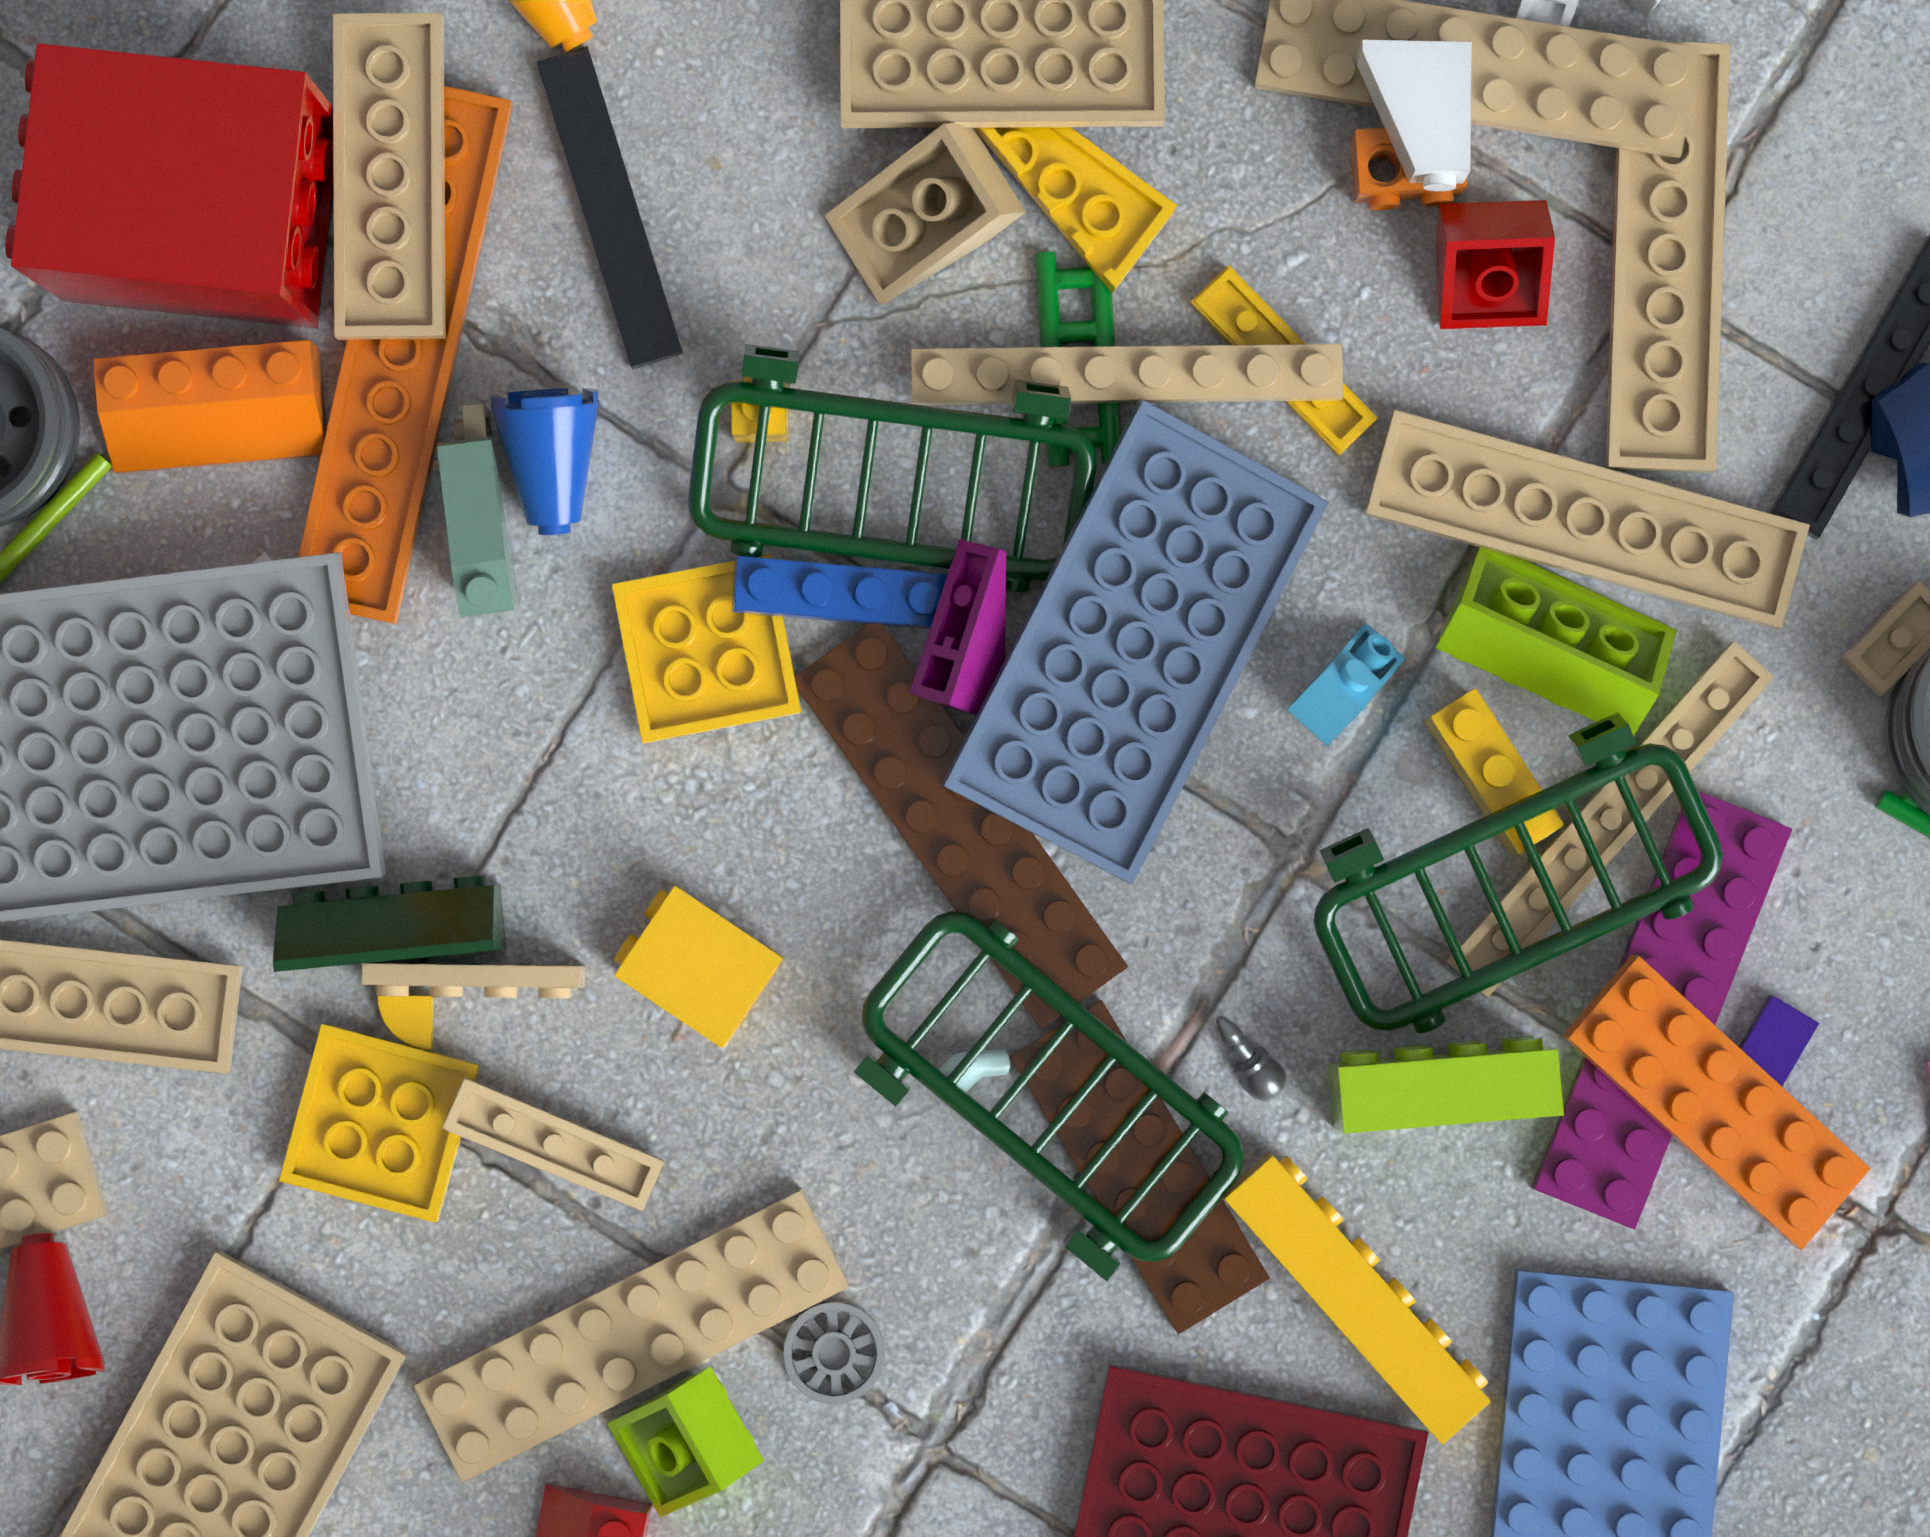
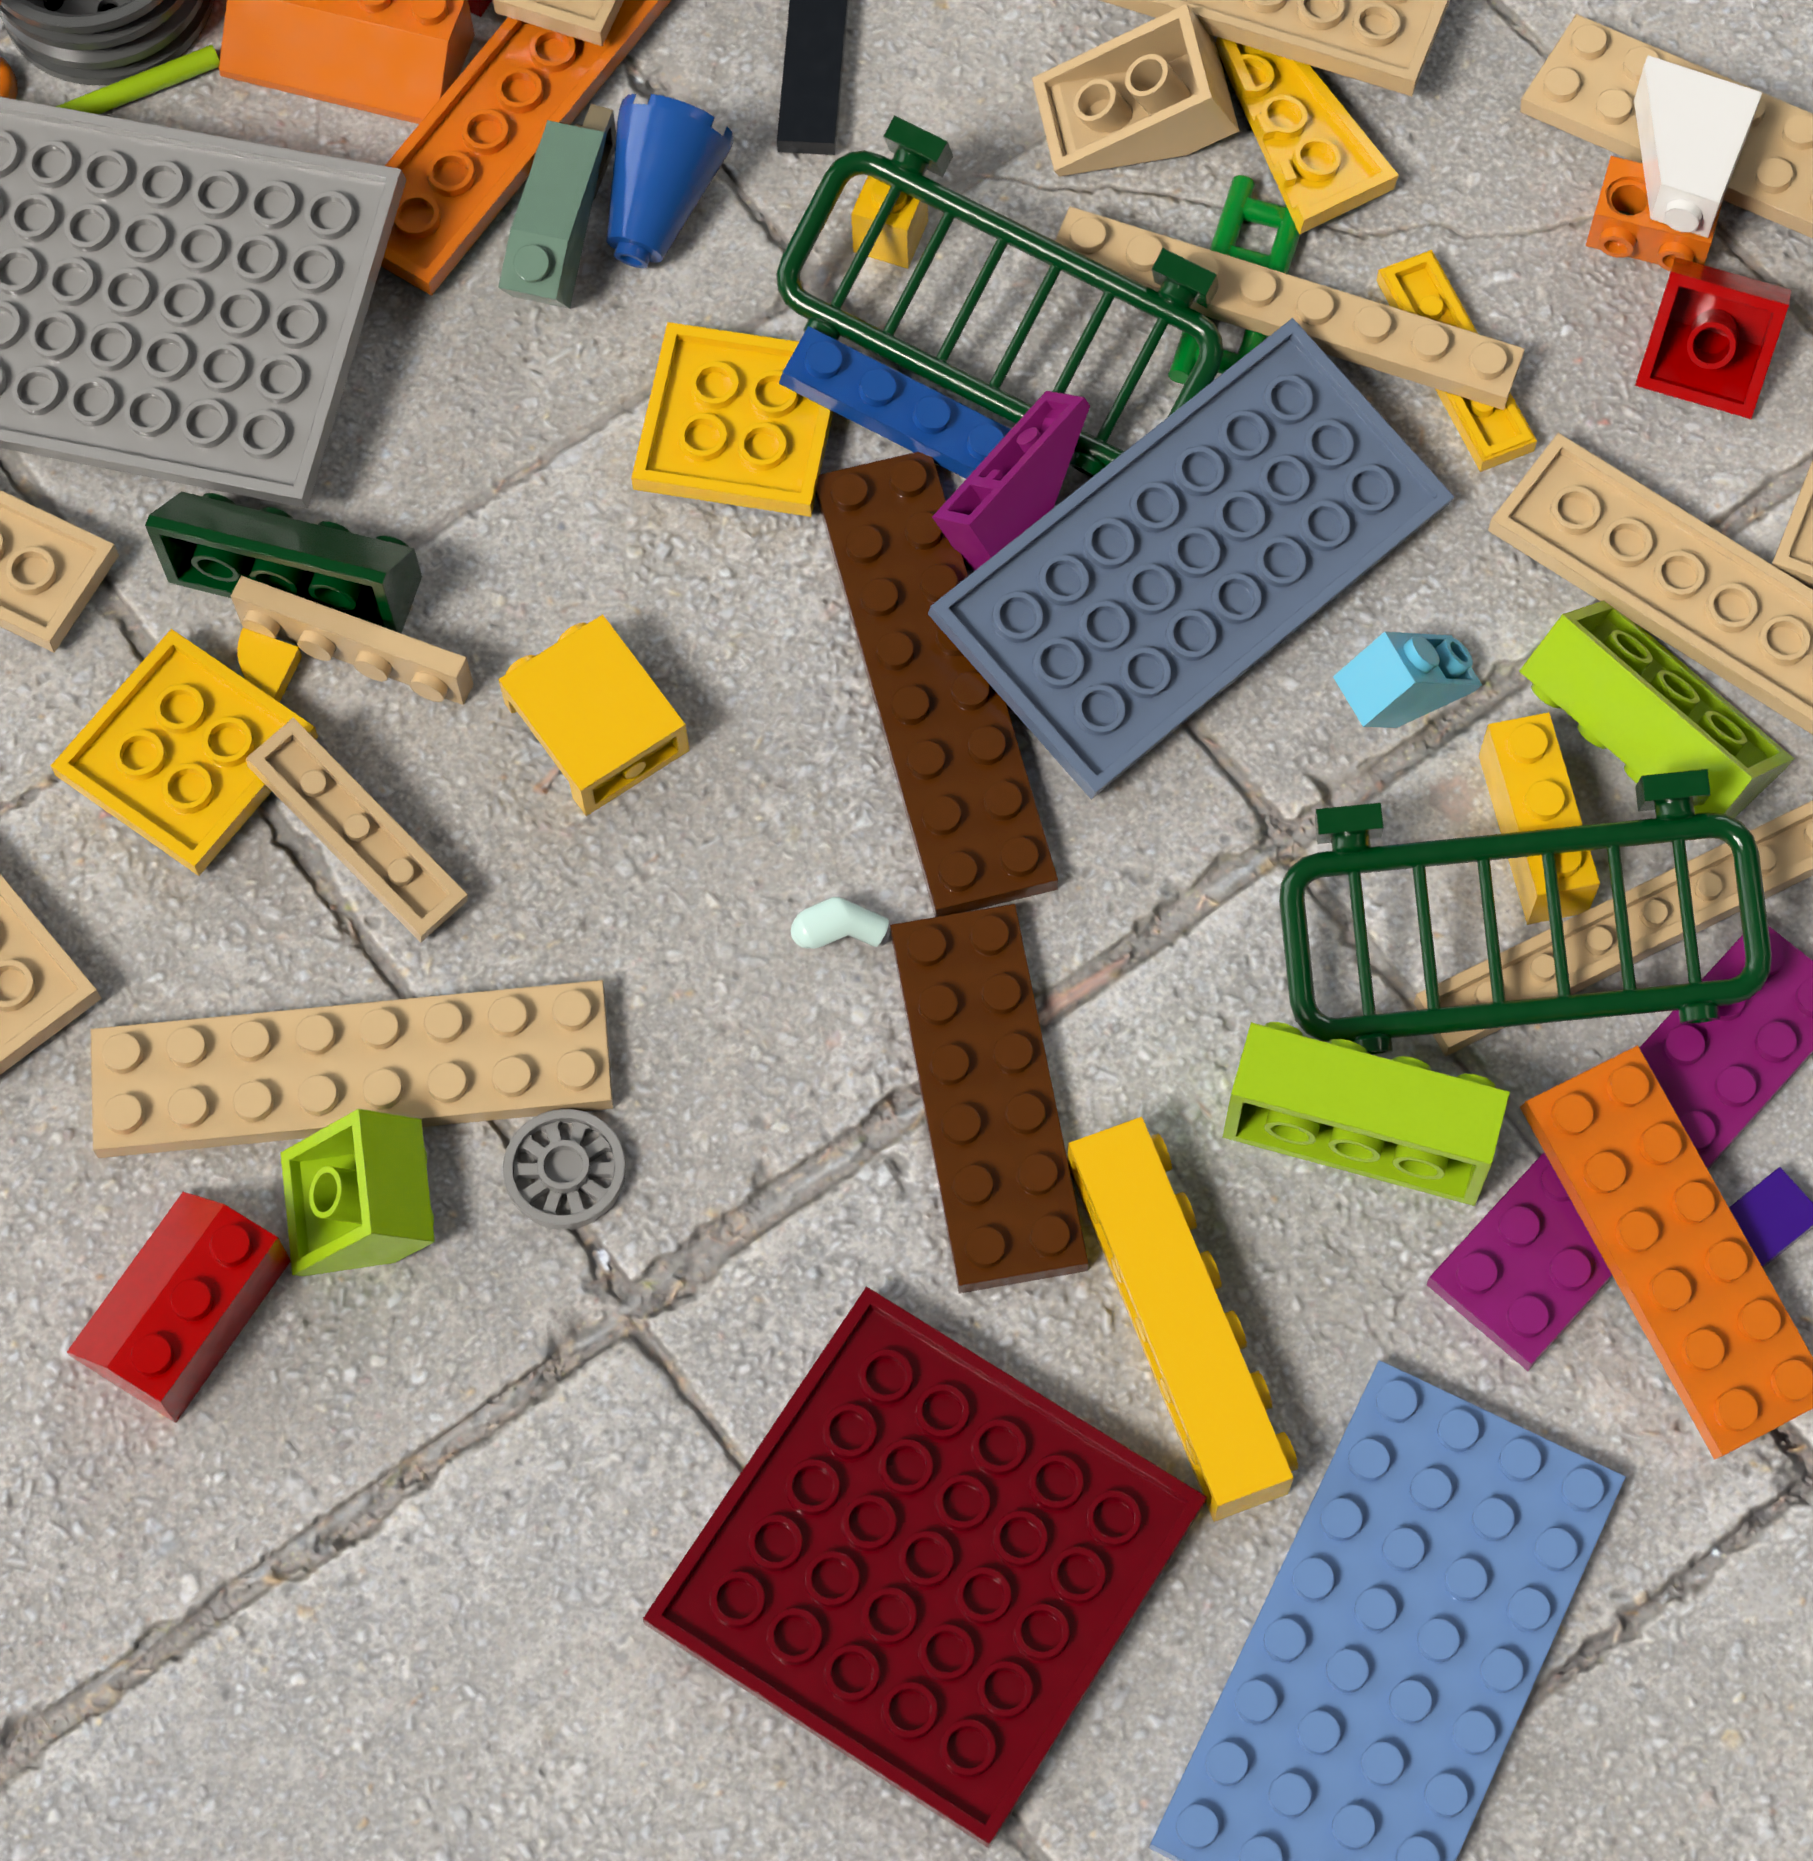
camera: 25 degrees right, 20 degrees down
(1108, 1230) = (906, 1145): dark green bar -> none
(1261, 1075) = (1162, 1051): flat silver bar -> none

